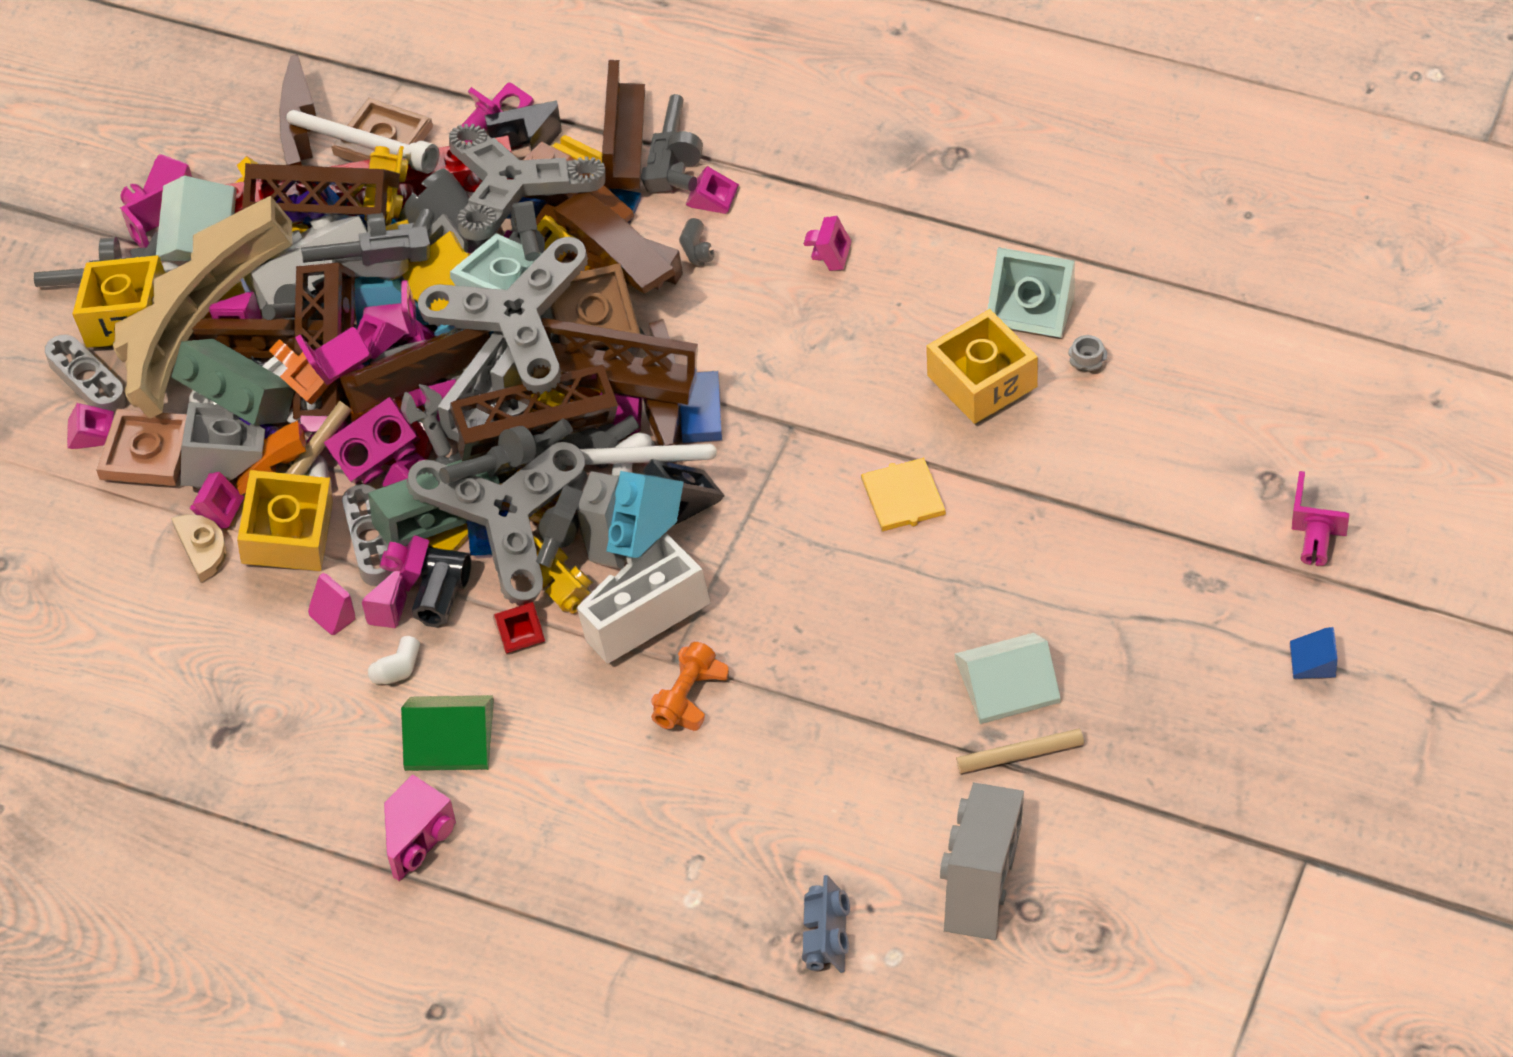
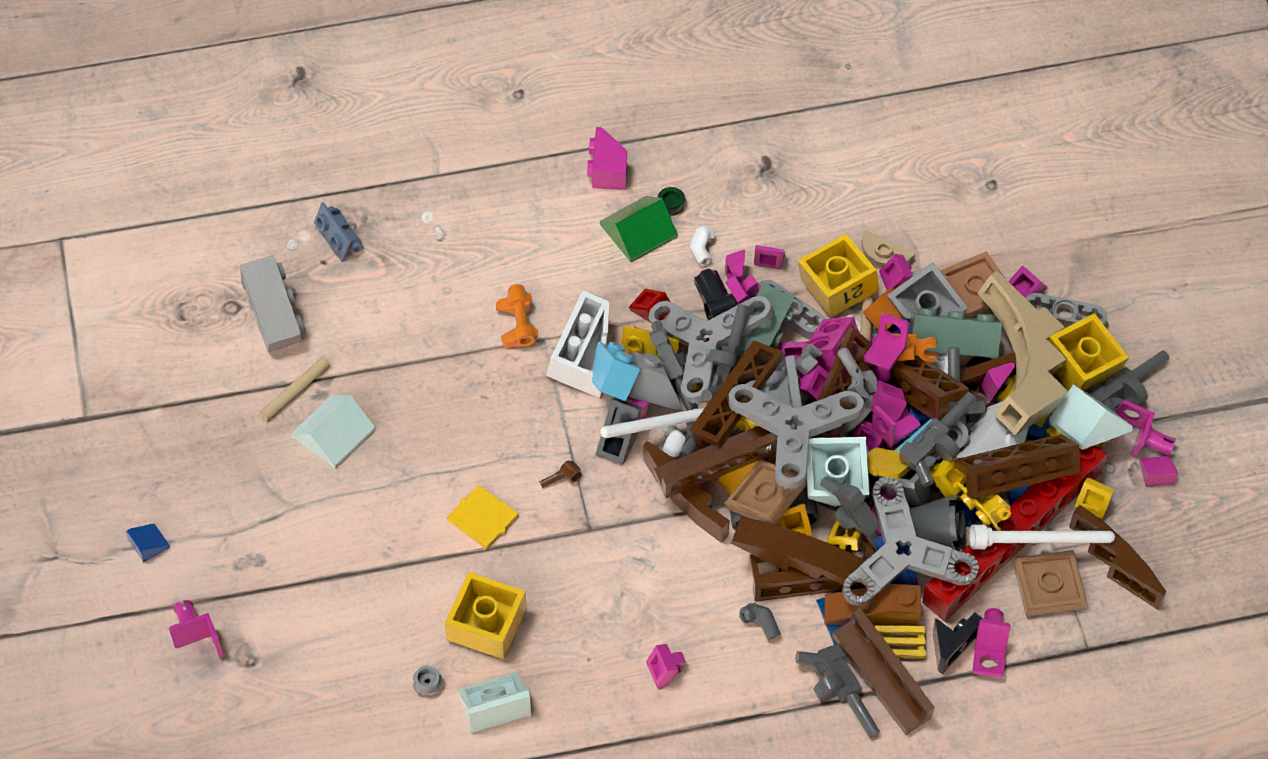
camera: 140 degrees right, 5 degrees up
(379, 743) = (673, 199): none -> dark green tile
(393, 347) = (859, 379): none -> light grey bar
(703, 414) = (664, 512): tile -> none
(713, 192) = (784, 672): dark pink slope -> none
(770, 488) = (568, 469): none -> reddish brown hand

